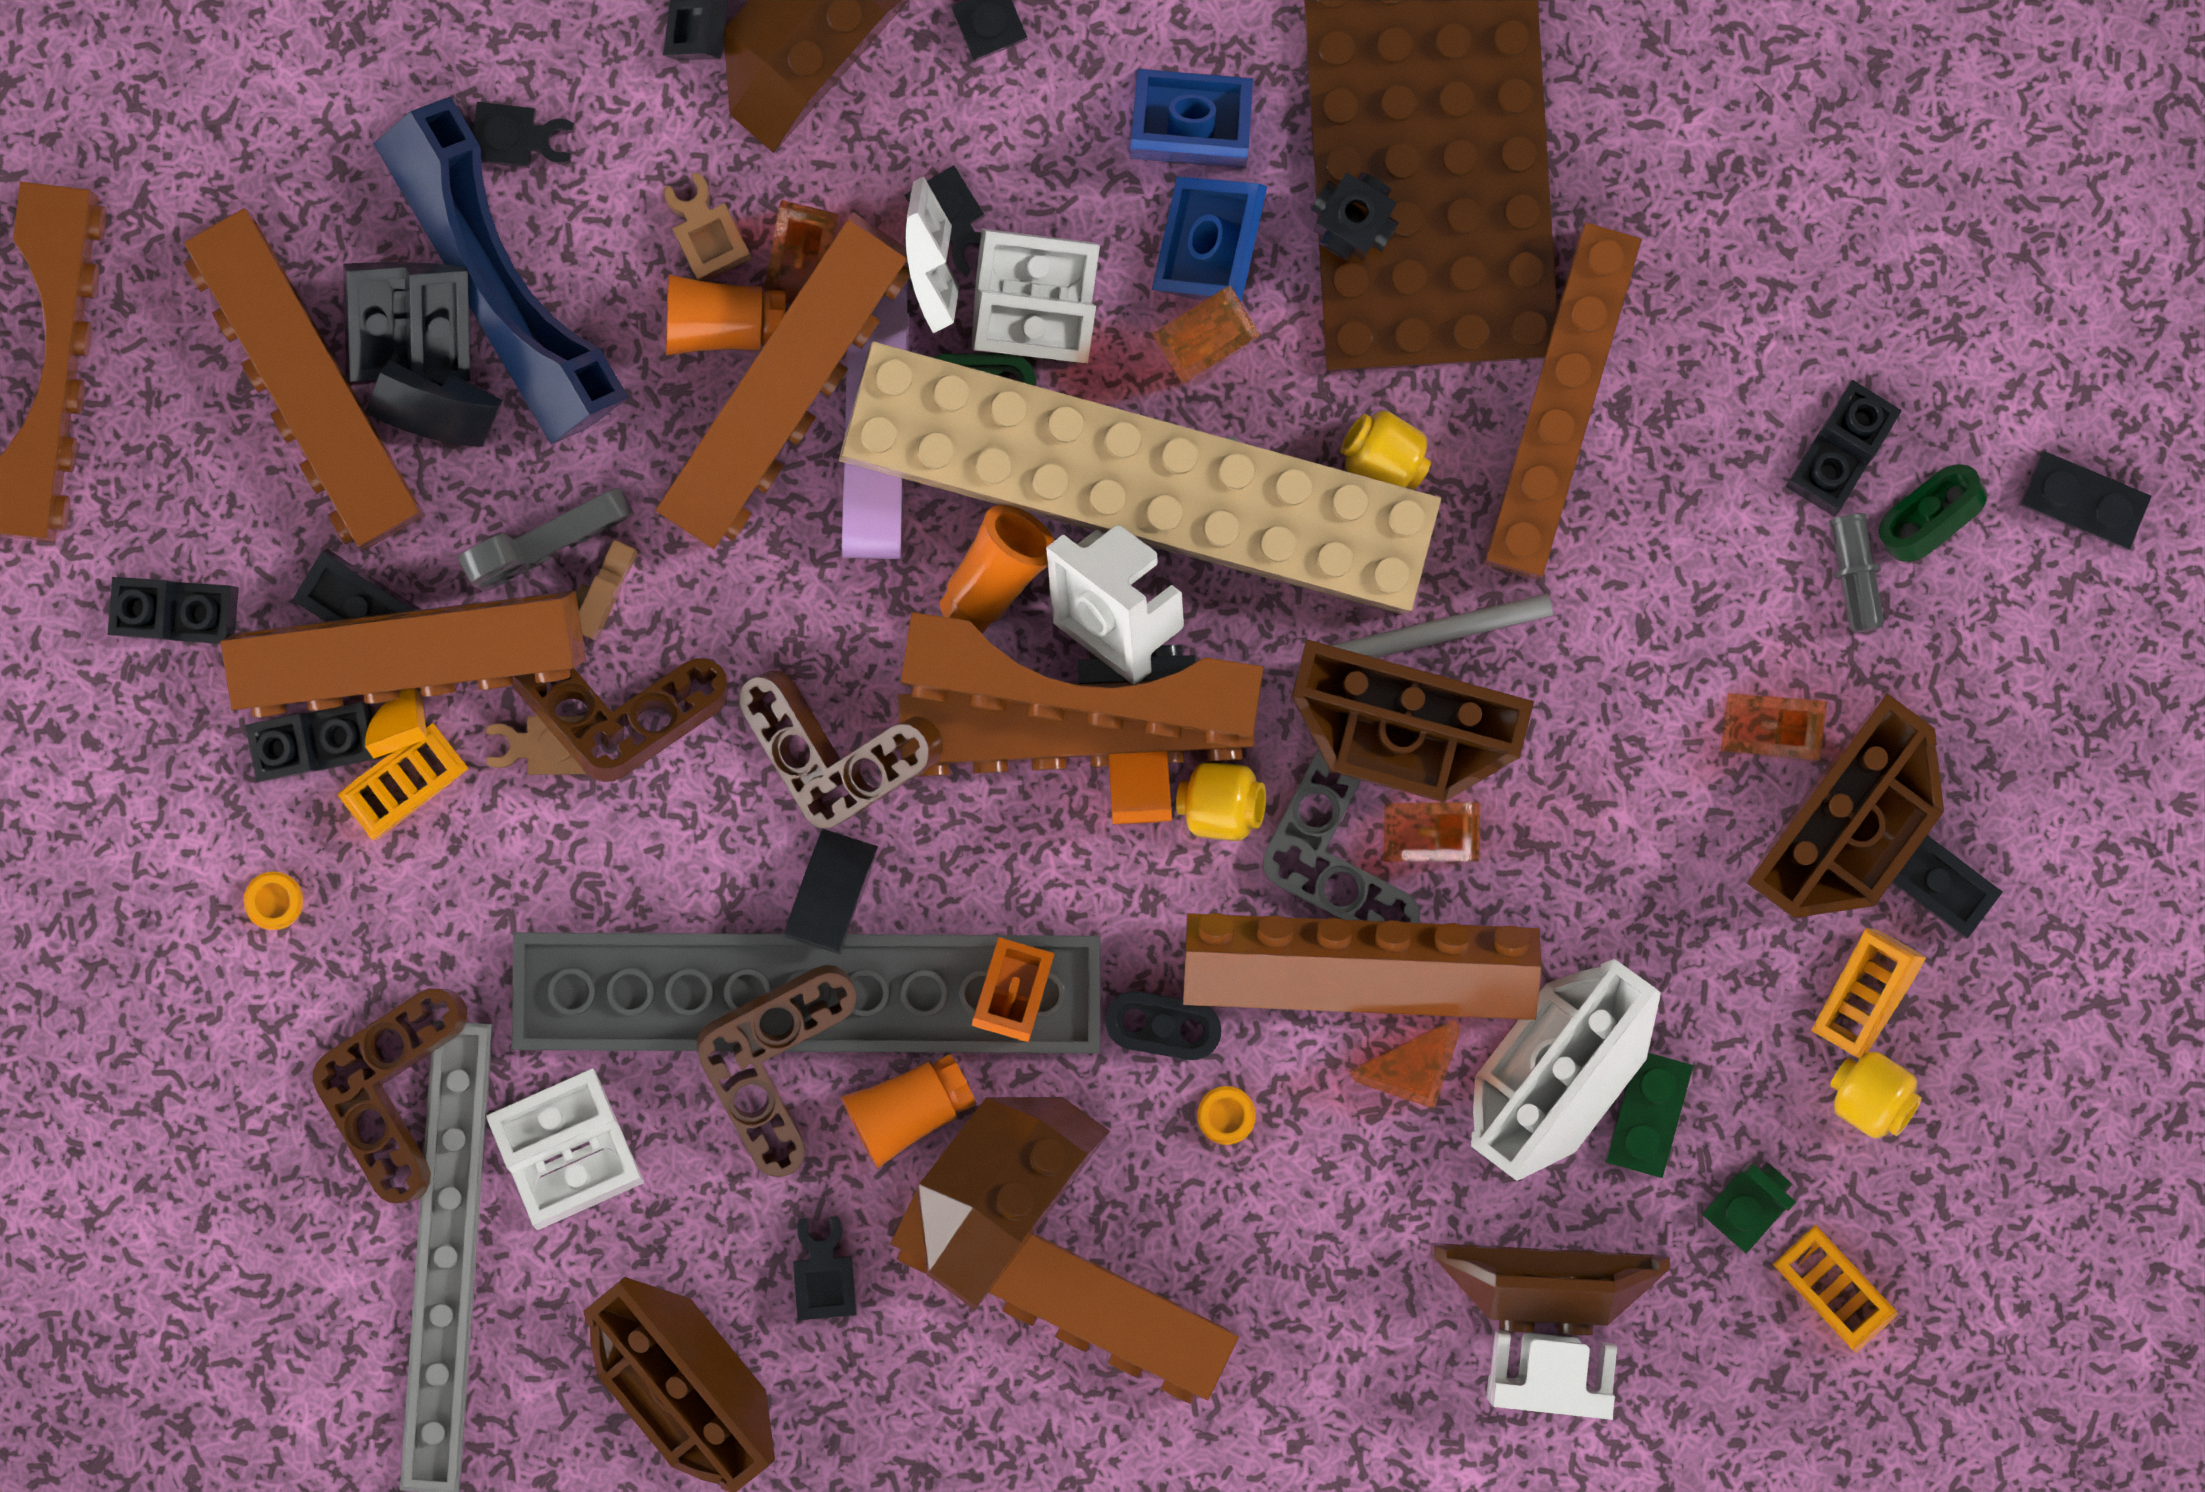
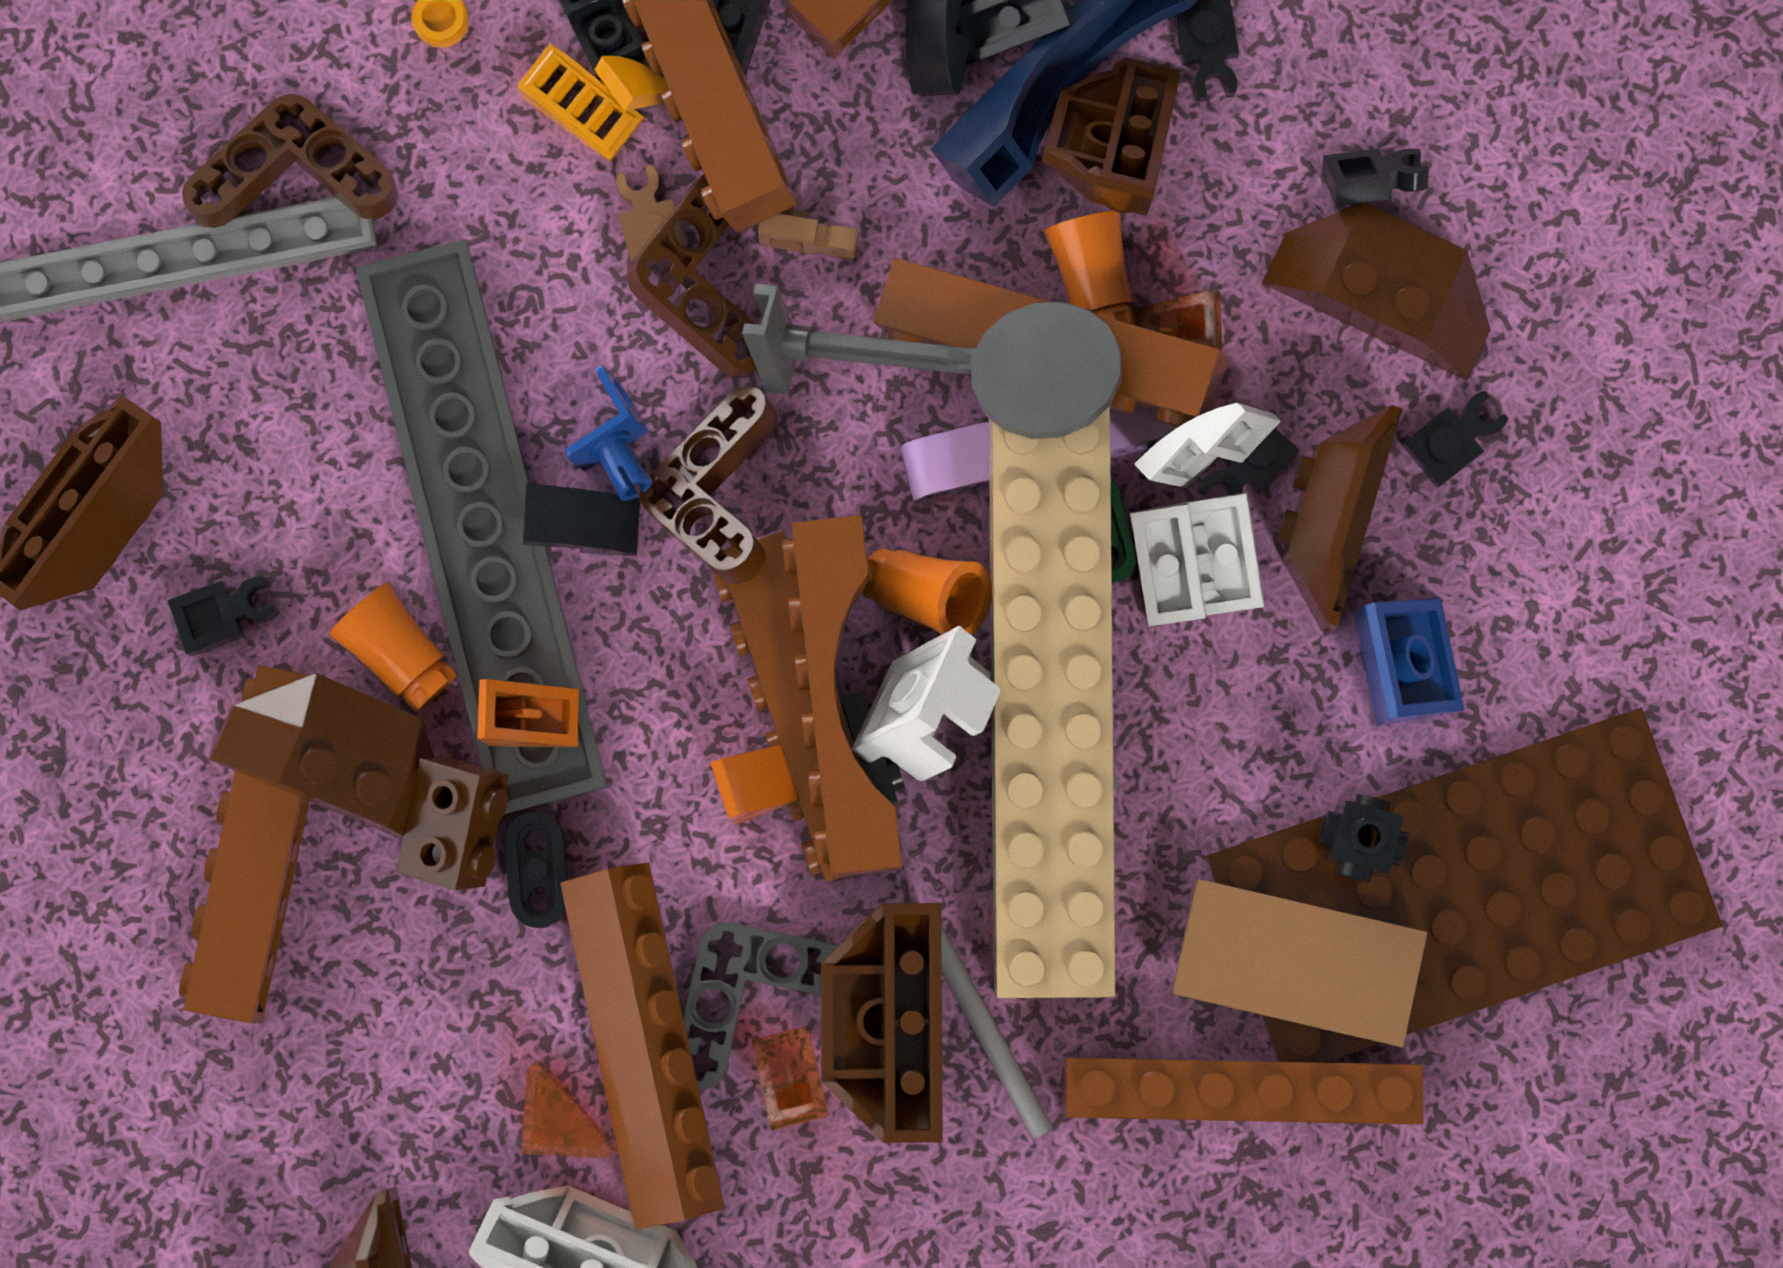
camera: 75 degrees right, 5 degrees down
(505, 558) = (806, 127): dark grey beam -> none
(553, 1125) = (299, 329): white slope -> none
(588, 256) = (1114, 133): none -> reddish brown wedge
(707, 236) = (1167, 242): medium nougat plate -> none
(757, 1047) = (414, 490): reddish brown beam -> none
(762, 840) = (612, 442): none -> blue bracket
(818, 404) = (1032, 372): none -> dark grey piece
(1026, 149) = (1334, 512): none -> reddish brown wedge
(1097, 1092) = (453, 823): none -> reddish brown brick
(1206, 336) = (1205, 727): clear orange slope -> none
(1209, 237) = (1299, 711): blue slope -> none
(1221, 801) = (765, 867): yellow head -> none
(1226, 1115) = (468, 954): light orange tile -> none
(1386, 450) = (1146, 933): yellow head -> none
(1456, 311) = (1299, 963): none -> medium nougat tile

